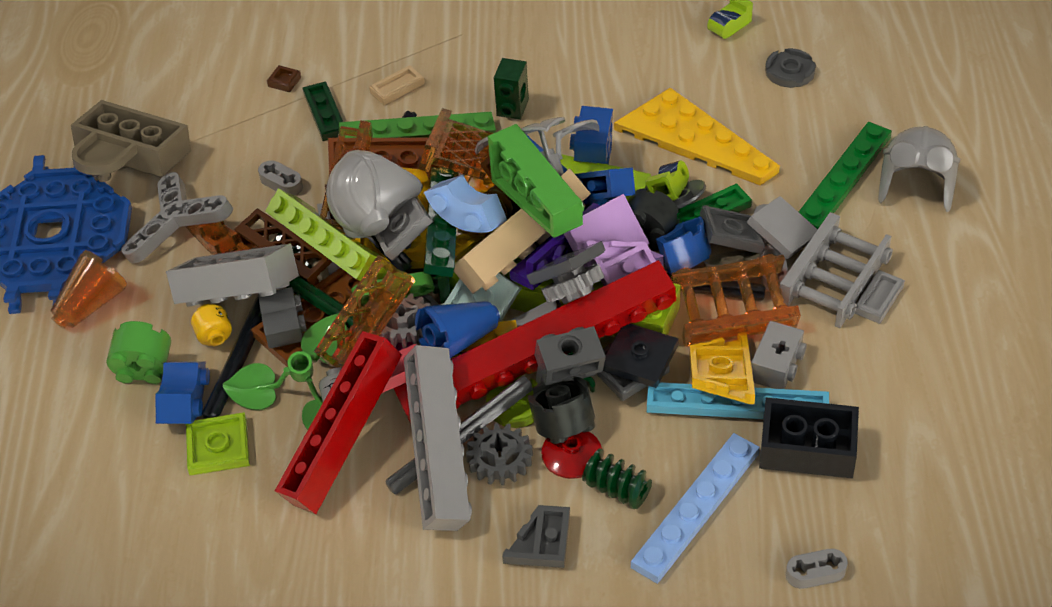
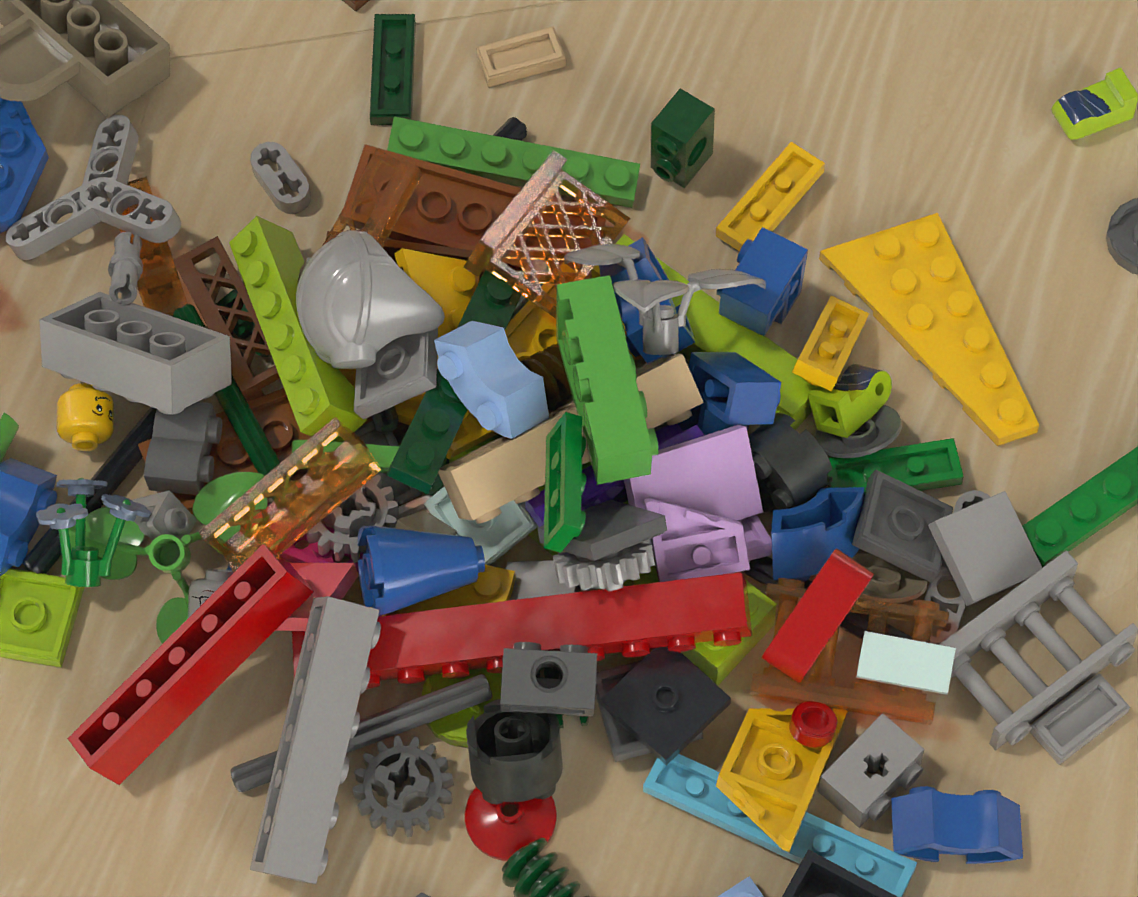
camera: 20 degrees right, 15 degrees up
(207, 238) = (125, 268): none -> light grey pin
(242, 397) = (83, 564): none -> plant
(277, 357) = (166, 516): none -> light grey bracket
(535, 239) = (564, 483): none -> green plate
(577, 94) = (771, 196): none -> yellow plate
(645, 157) = (830, 343): none -> yellow plate
(710, 277) = (817, 615): none -> red beam
(732, 340) = (813, 724): none -> red tile
(770, 290) = (906, 662): none -> light aqua tile
(841, 366) = (975, 825): none -> blue brick

